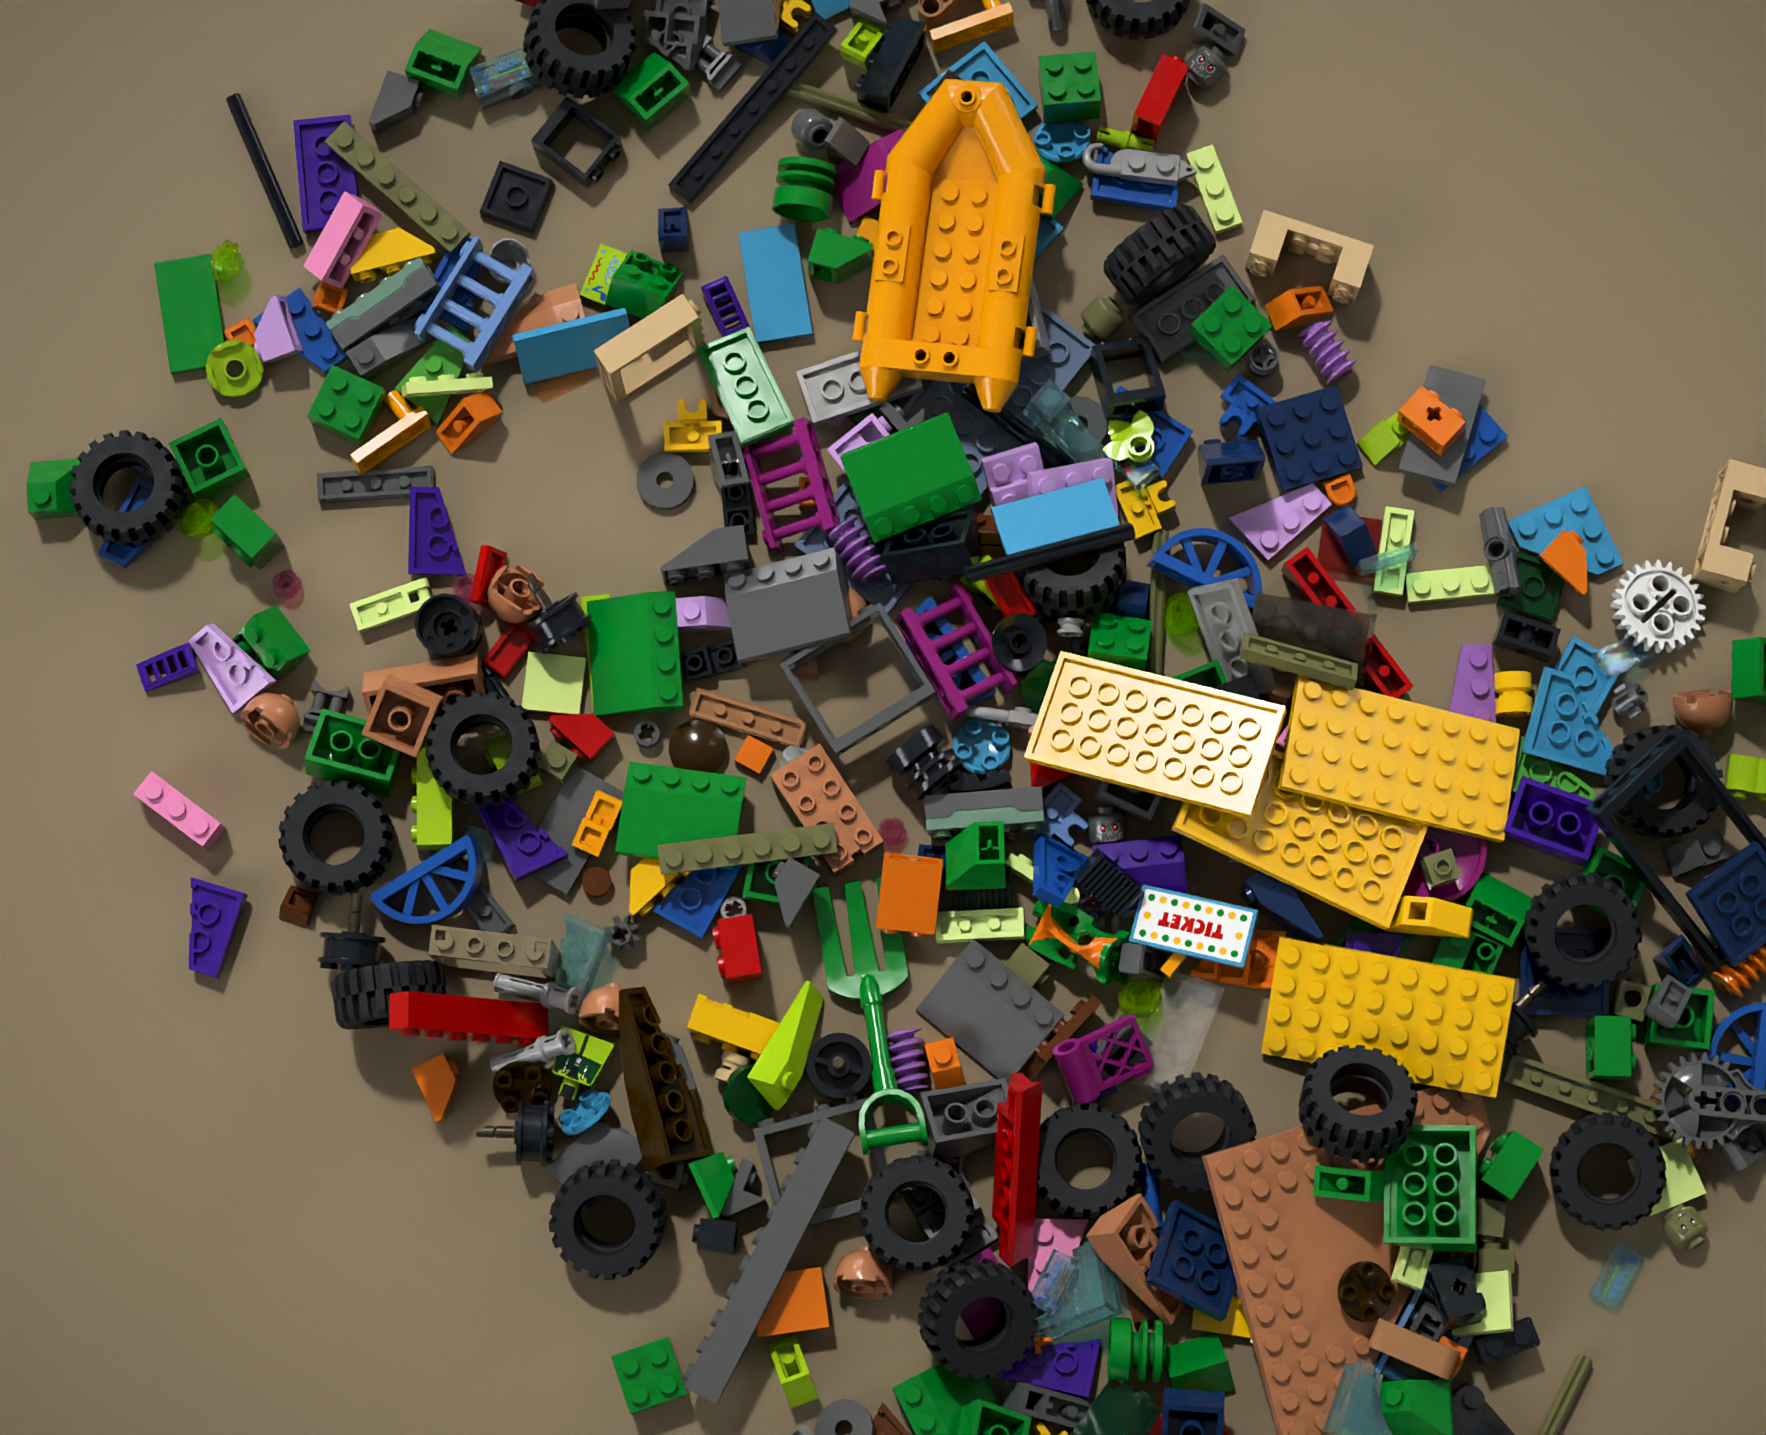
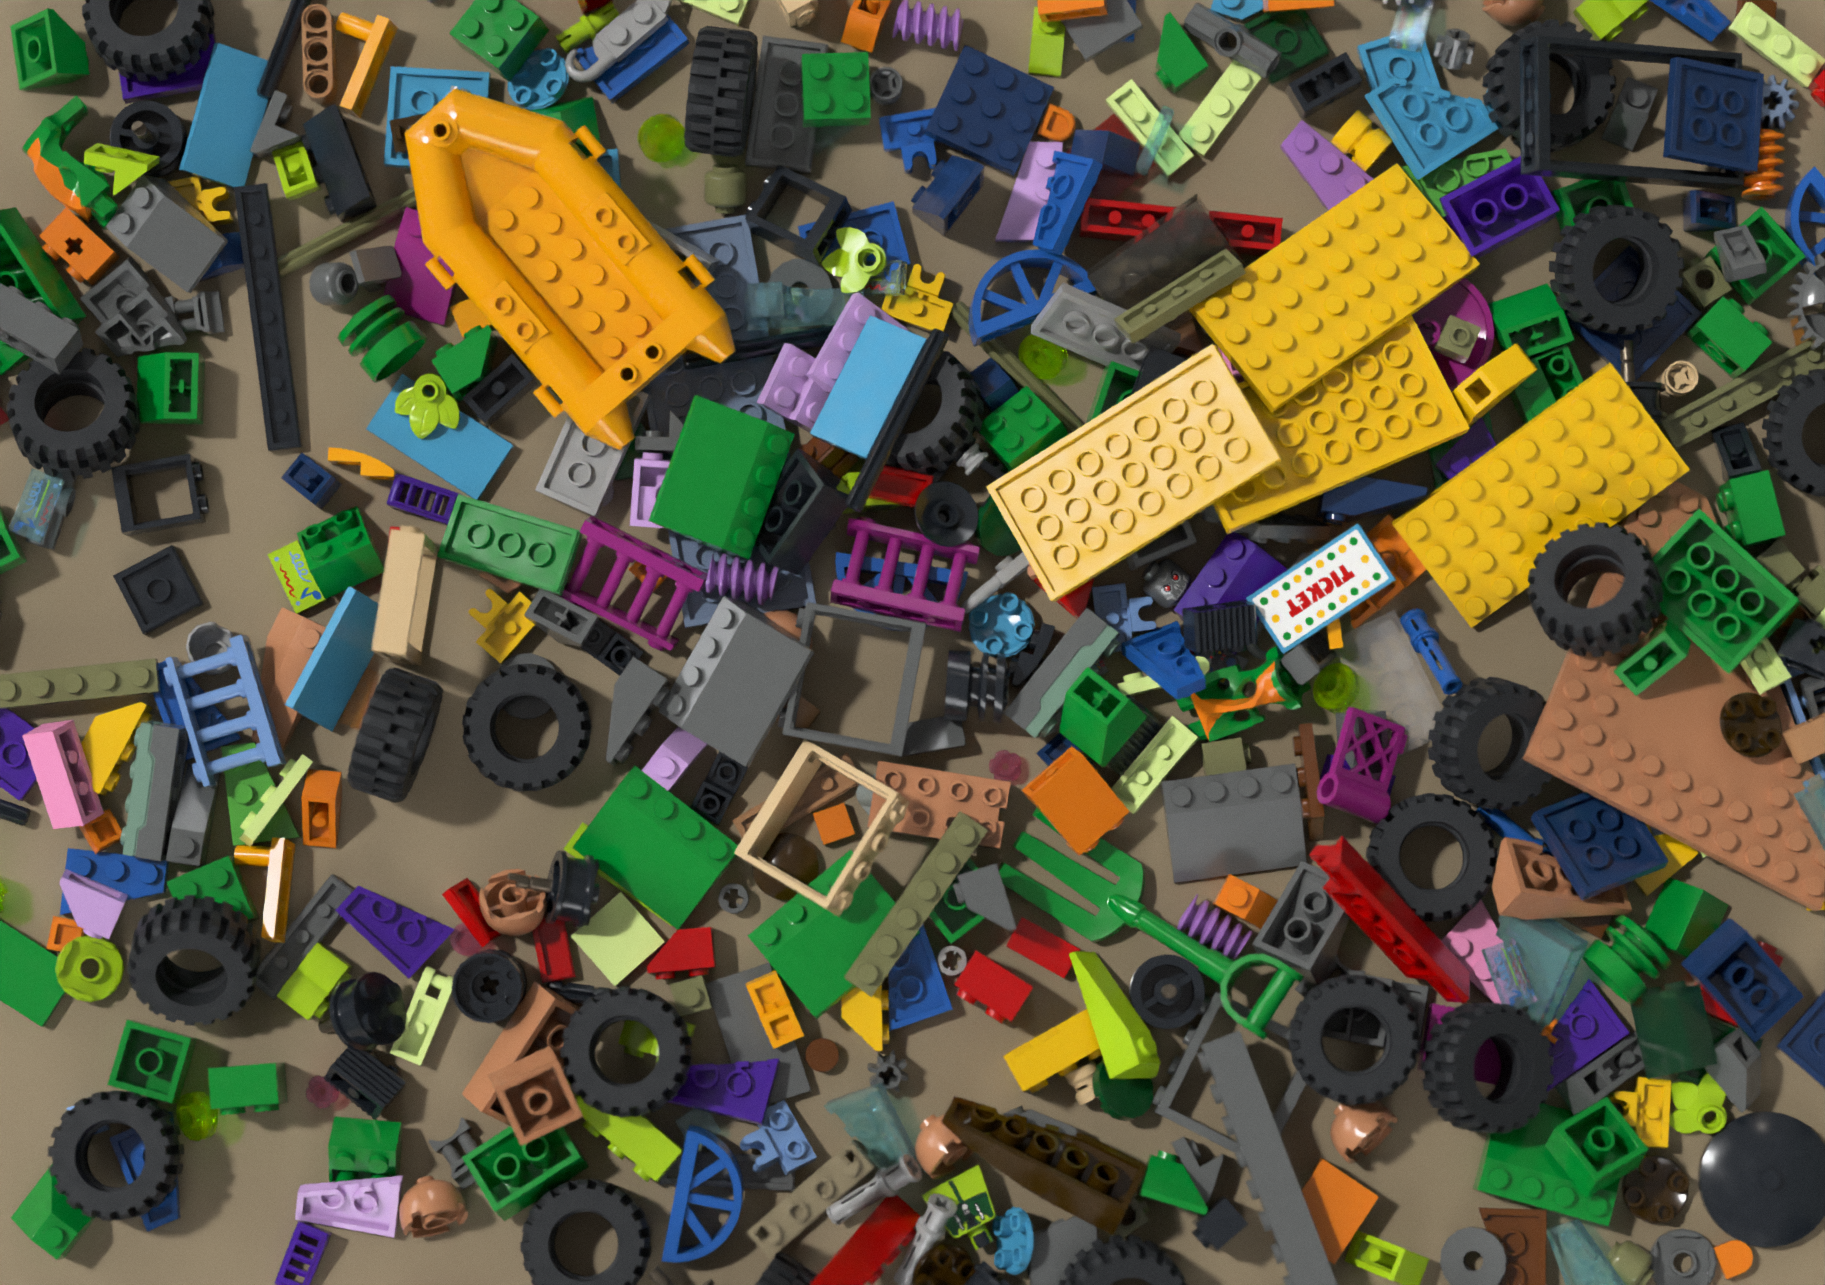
camera: 45 degrees left, 5 degrees up
(268, 433) = (188, 993): none -> black tyre
(318, 603) = (365, 1080): none -> black brick
(352, 517) = (314, 982): none -> lime brick
(361, 564) = (366, 1012): none -> black wheel
(515, 902) = (779, 1141): none -> medium blue plate
(555, 420) = (394, 735): none -> black tyre
(614, 470) = (481, 736): none -> black tyre
(714, 256) = (370, 467): none -> light orange slope
(736, 707) = (782, 802): none -> tan window
(785, 260) = (426, 410): none -> lime plate
(795, 960) = (1042, 947): none -> red tile
(839, 292) = (500, 390): none -> black brick
(868, 767) = (933, 736): none -> dark grey slope
(1094, 247) = (661, 138): none -> clear neon green plate
(1208, 863) = (1278, 527): none -> dark grey plate
(1212, 1057) = (1447, 677): none -> blue pin
(1300, 534) = (1068, 194): none -> blue wing
(1455, 527) = (1177, 57): none -> green slope
(1539, 1120) = (1735, 451): none -> black slope
(1556, 1039) = (1683, 374): none -> tan wheel

